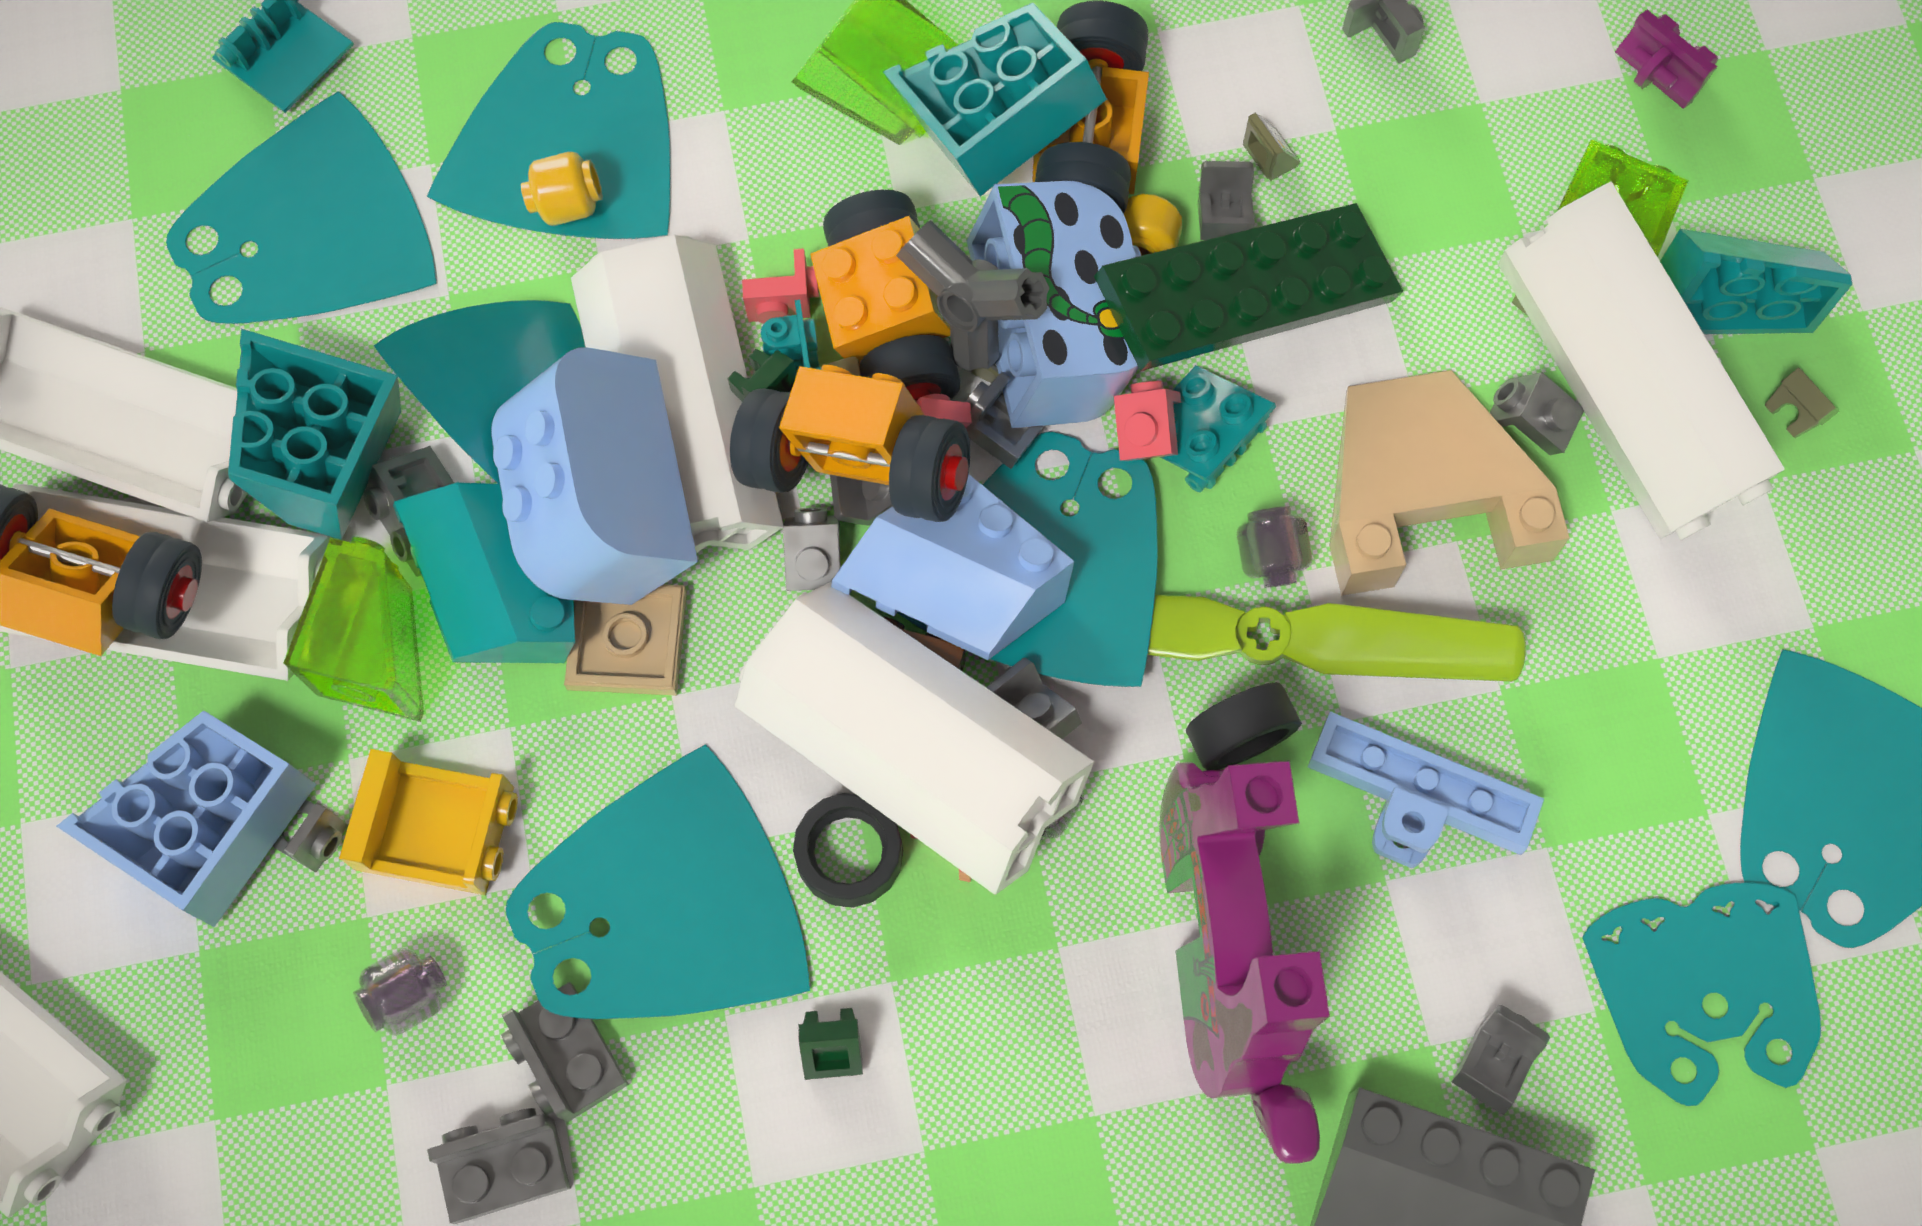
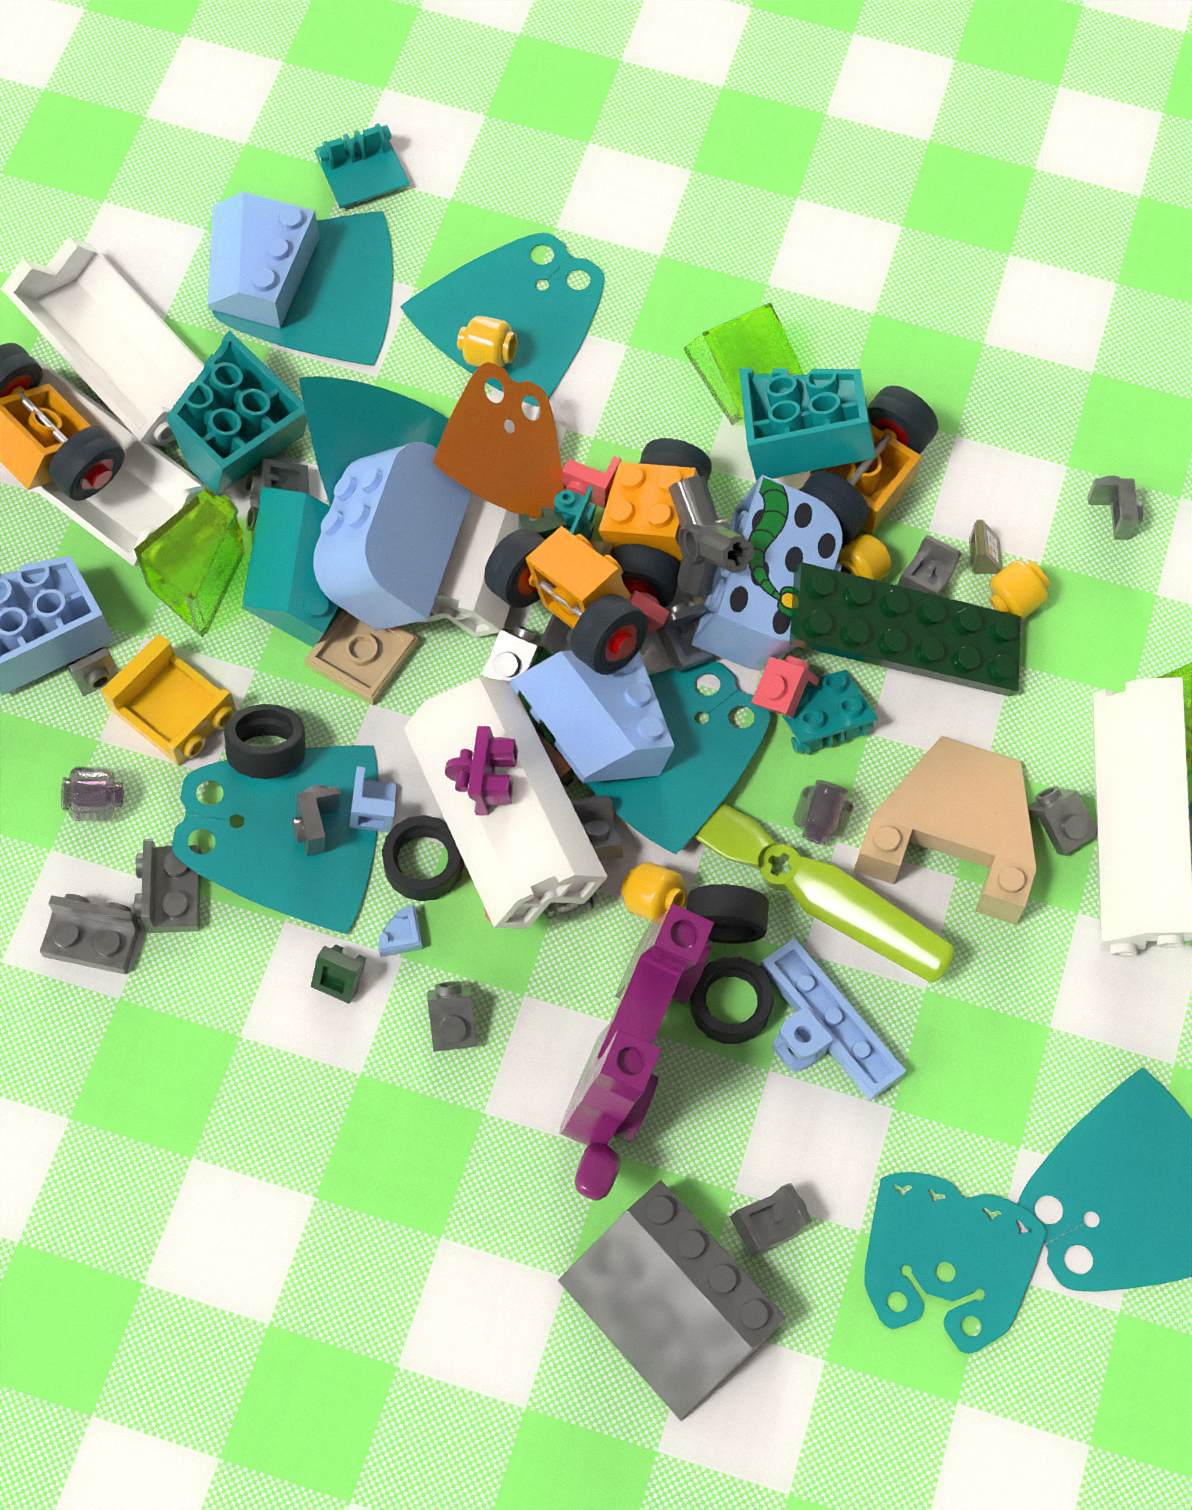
camera: 25 degrees right, 5 degrees down
(218, 219) = (258, 256): none -> light blue wedge
(587, 842) = (265, 761): none -> black tyre
(670, 330) = (507, 469): none -> orange piece
(691, 885) = (308, 823): none -> flat silver bracket
(749, 816) = (372, 804): none -> light blue panel
(874, 954) = (401, 933): none -> light blue tile
(893, 733) = (479, 772): none -> magenta hips
(994, 1022) = (451, 1016): none -> flat silver bracket
(1142, 745) = (652, 889): none -> yellow head
(1337, 172) = (1019, 588): none -> yellow head
(1346, 825) = (744, 970): none -> black tyre

